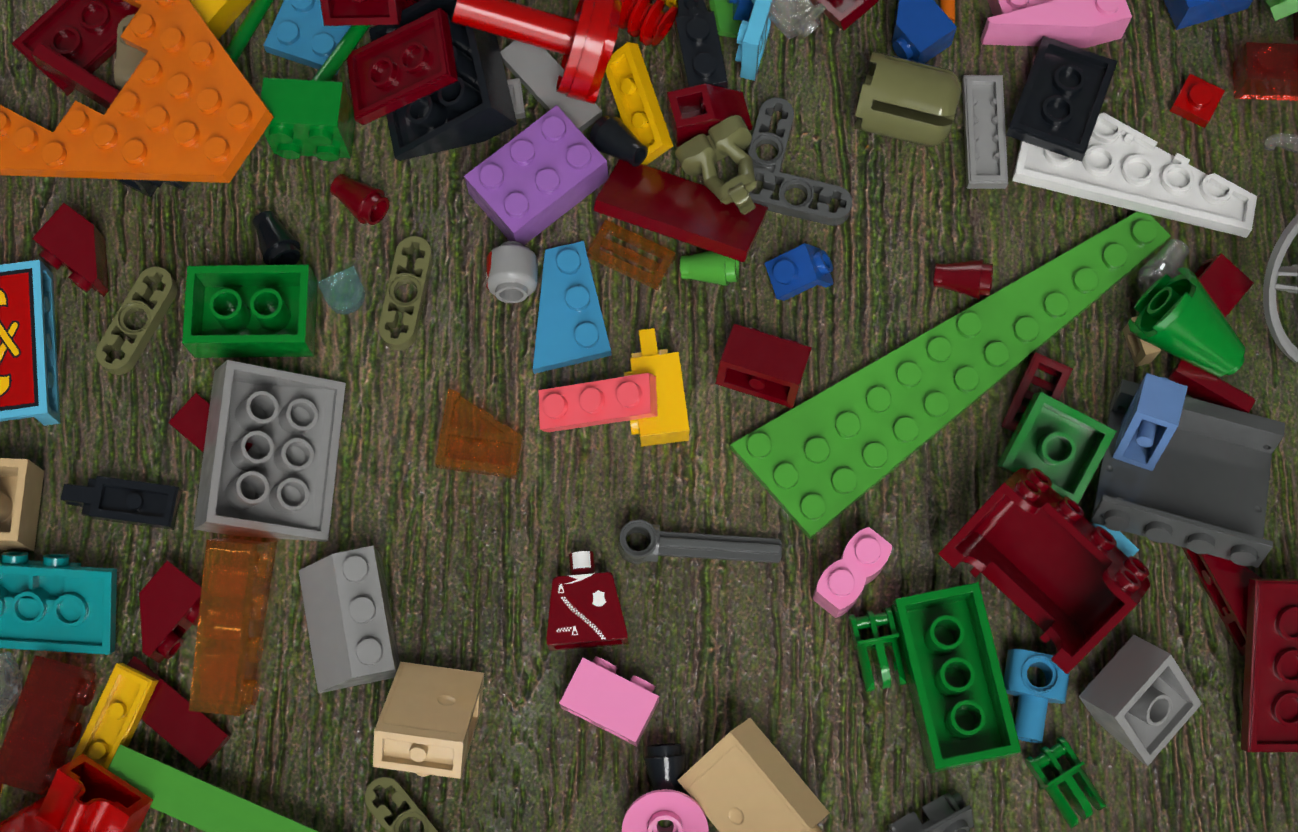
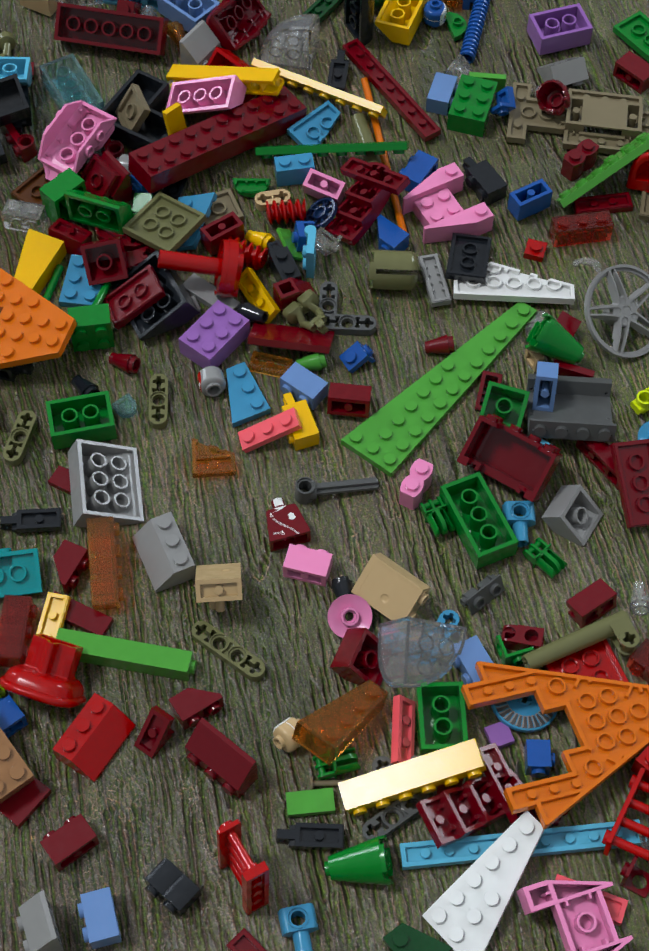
camera: 15 degrees left, 15 degrees down
(683, 316) = (304, 385): none -> medium blue brick

